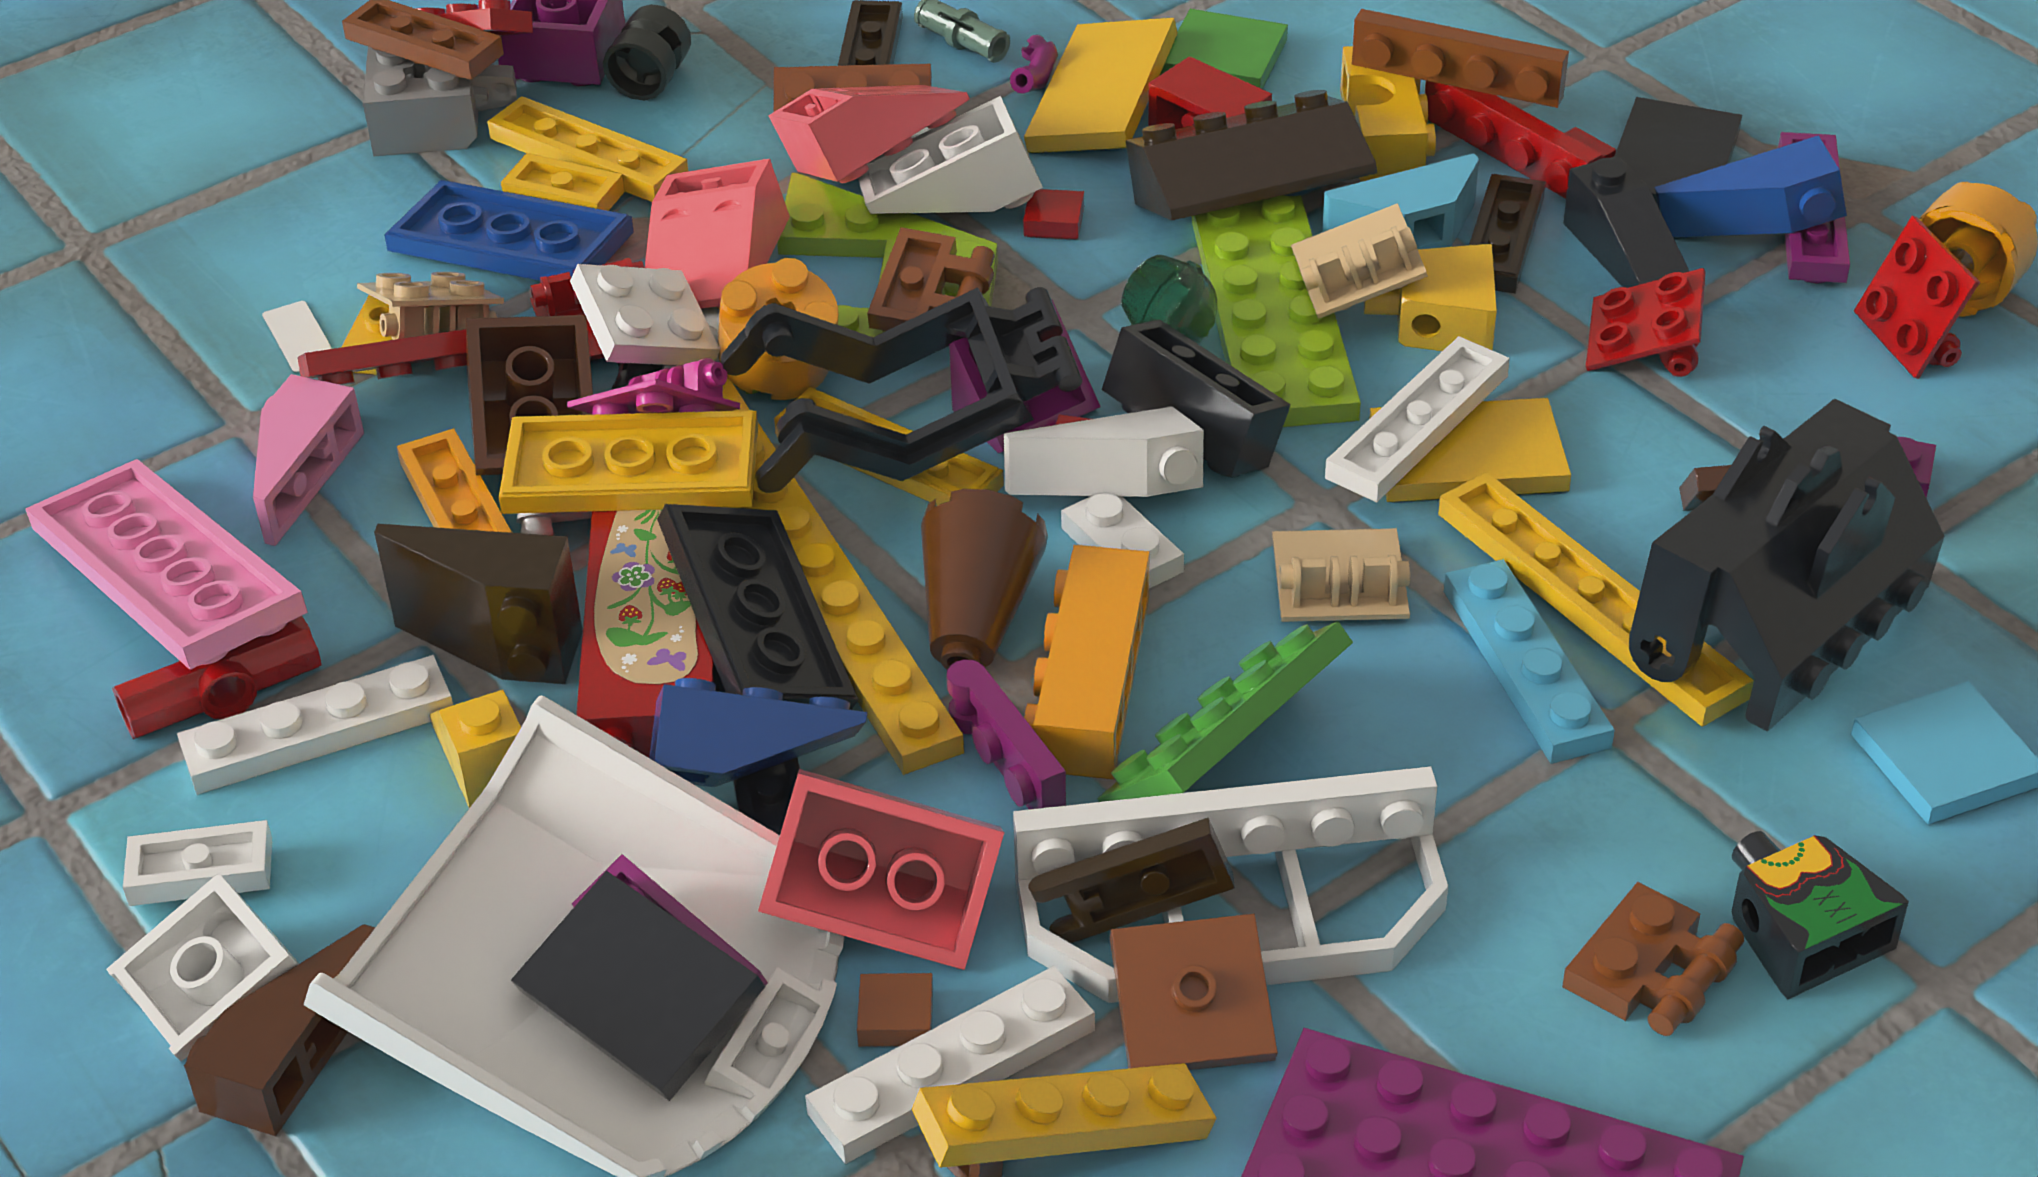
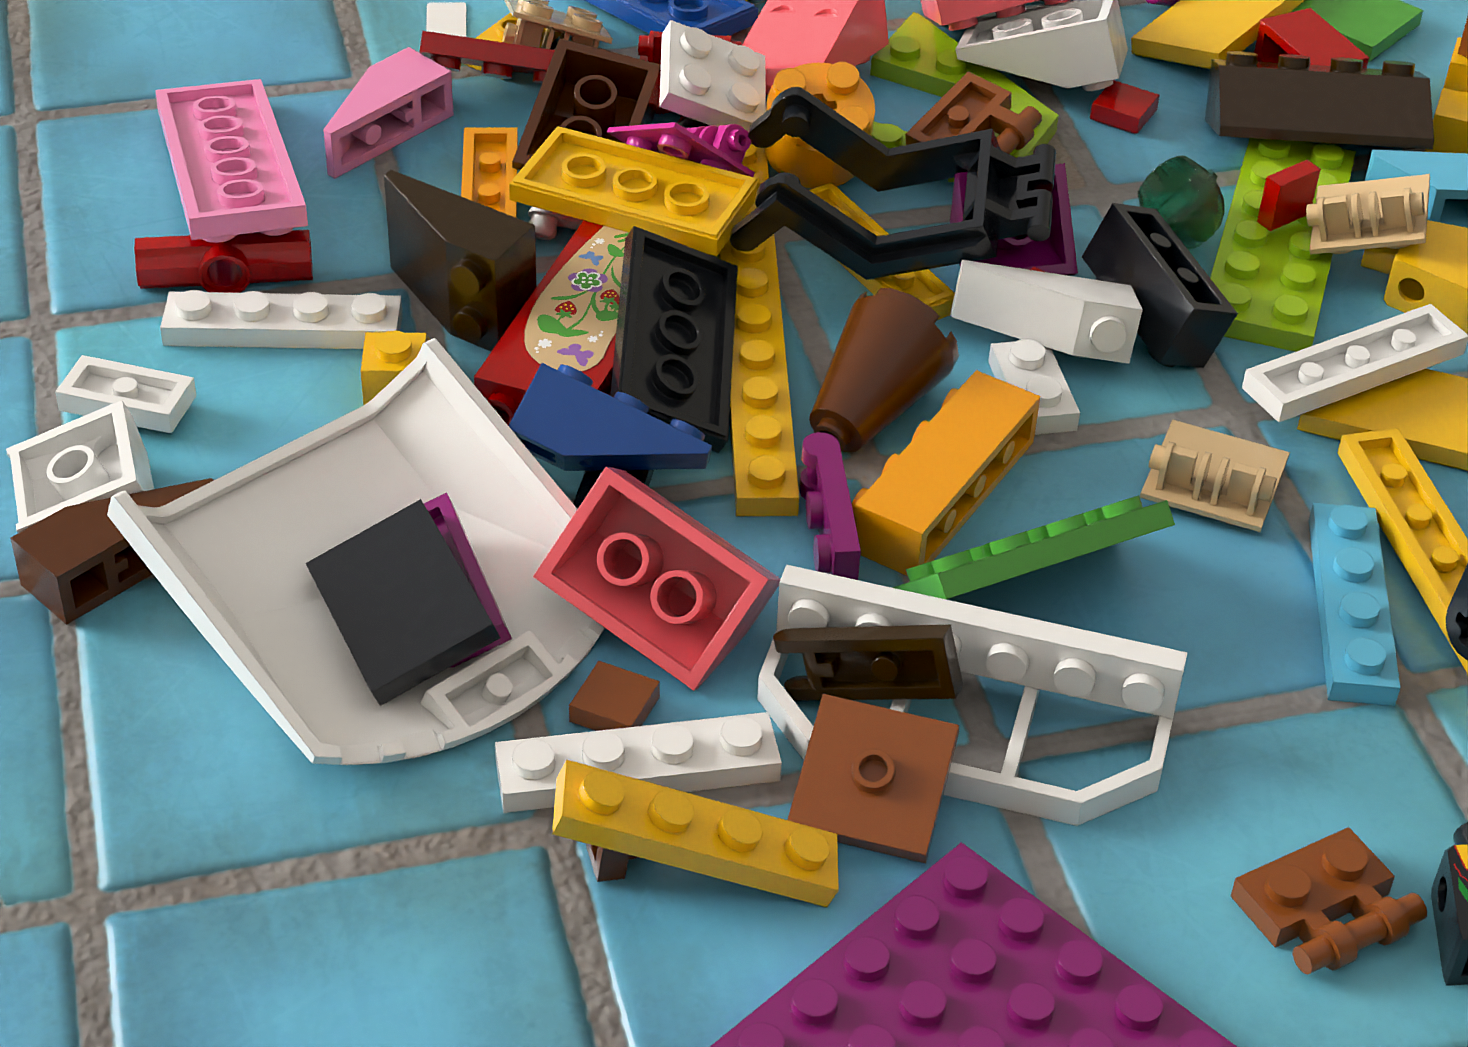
camera: 20 degrees right, 0 degrees up
(1273, 264) = (1288, 194): none -> red tile

